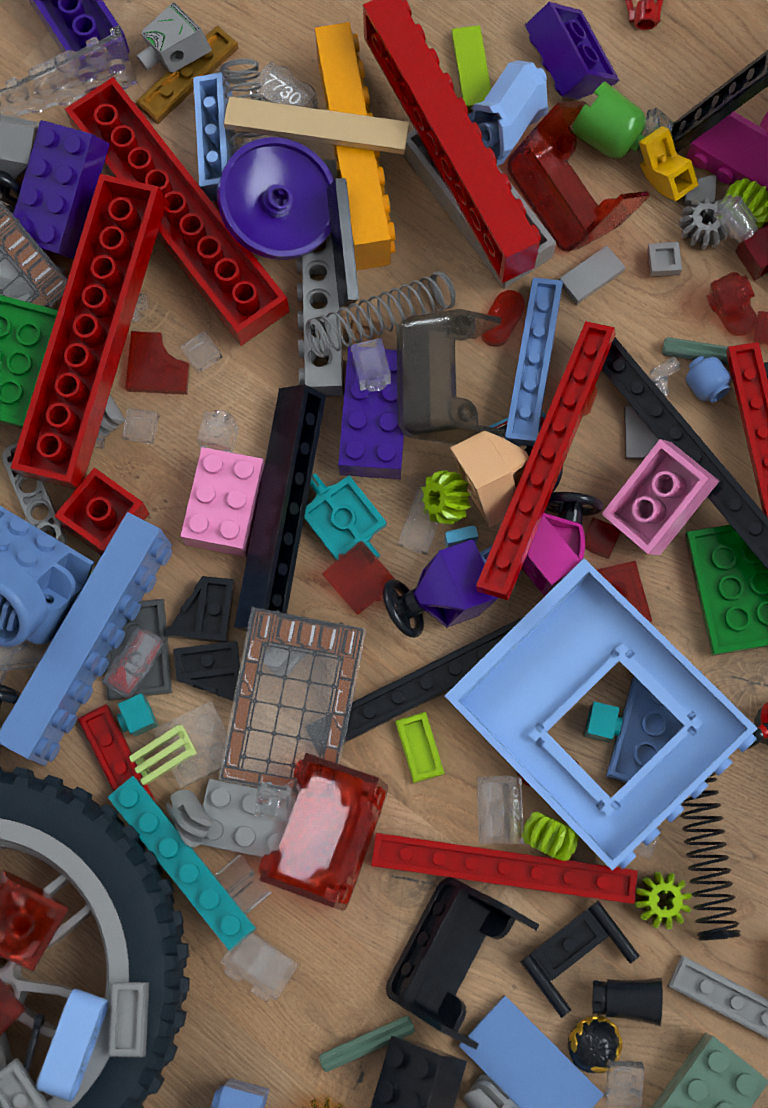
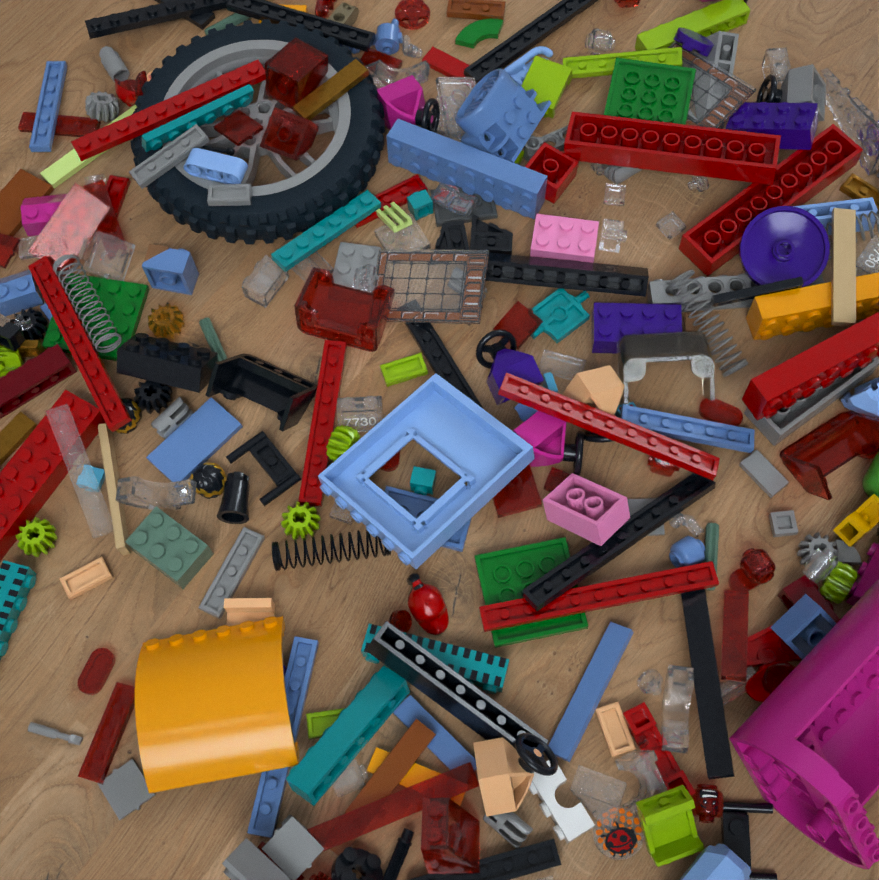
camera: 90 degrees right, 10 degrees down
(153, 368) = (657, 198): clear red tile -> none
(188, 817) = (354, 233): light grey arm -> none
(371, 365) = (664, 309): clear brick -> none
(445, 497) = (571, 365): lime gear -> none

